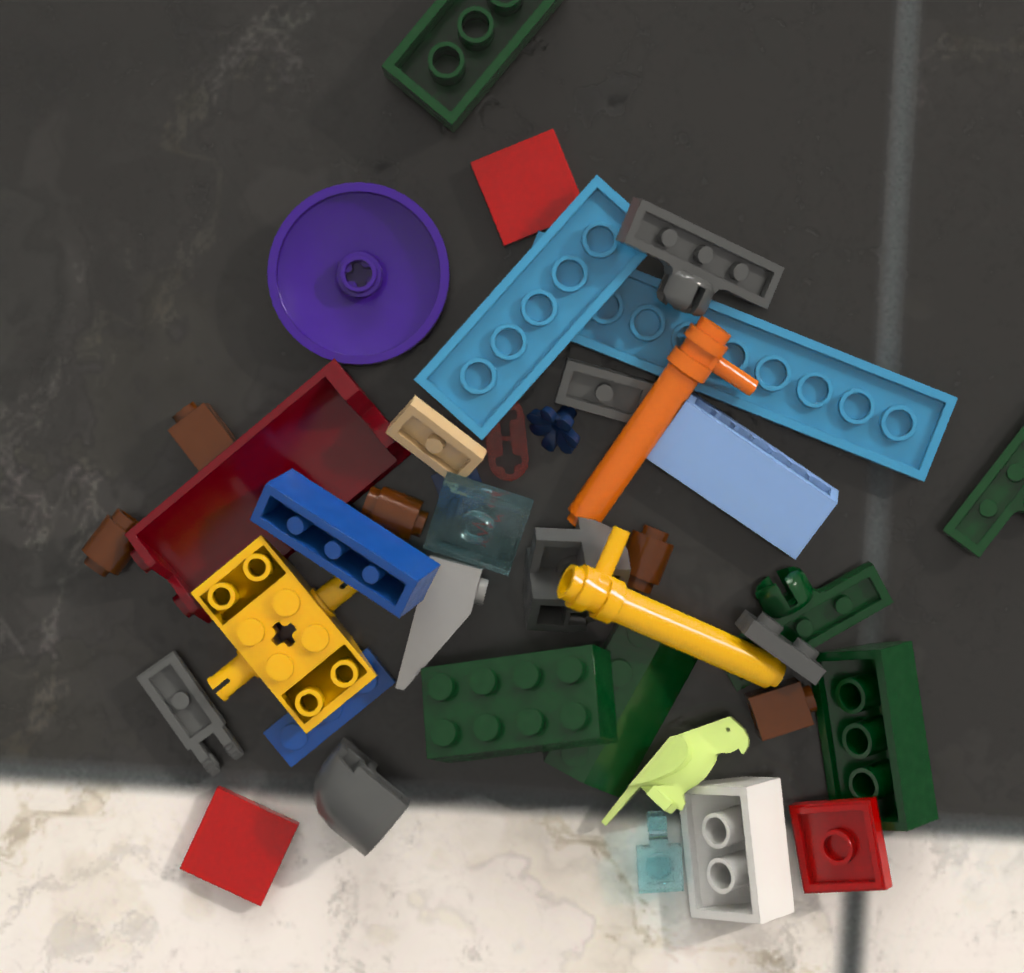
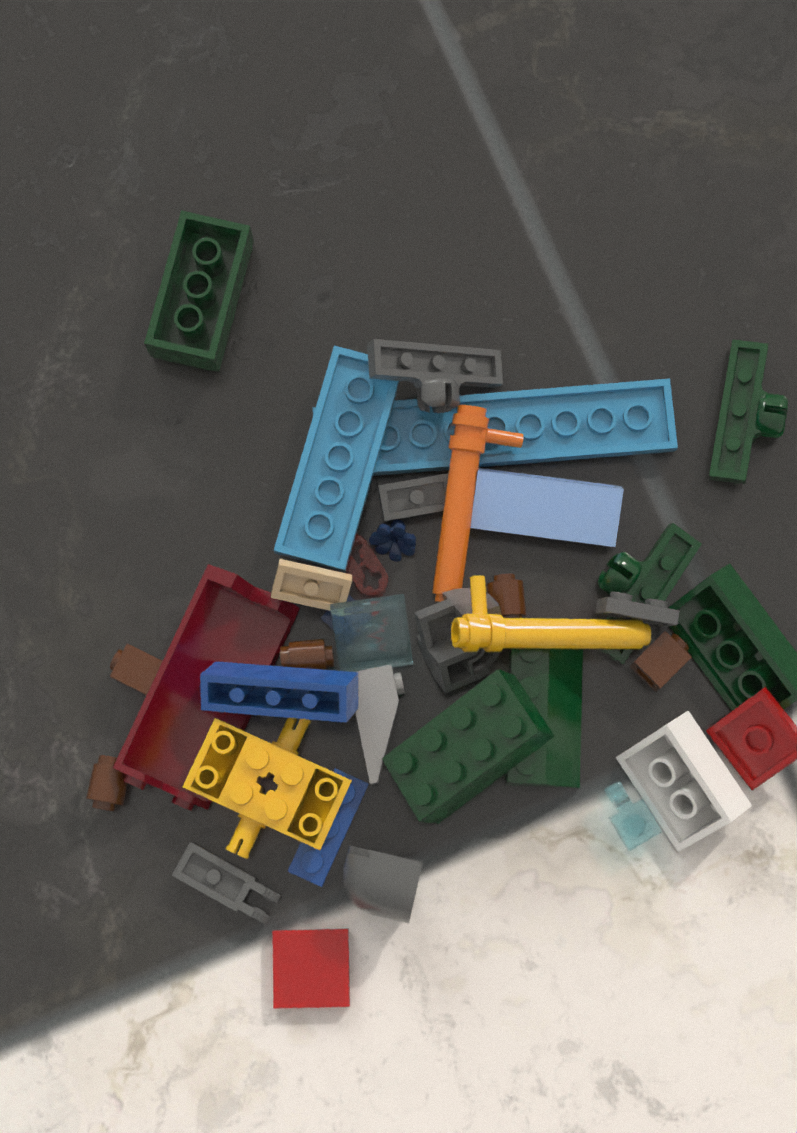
camera: 20 degrees left, 10 degrees down
(358, 273) = (197, 498): dark purple dish -> none
(526, 186) = (287, 383): red tile -> none
(683, 764) = (611, 736): yellowish green animal -> none

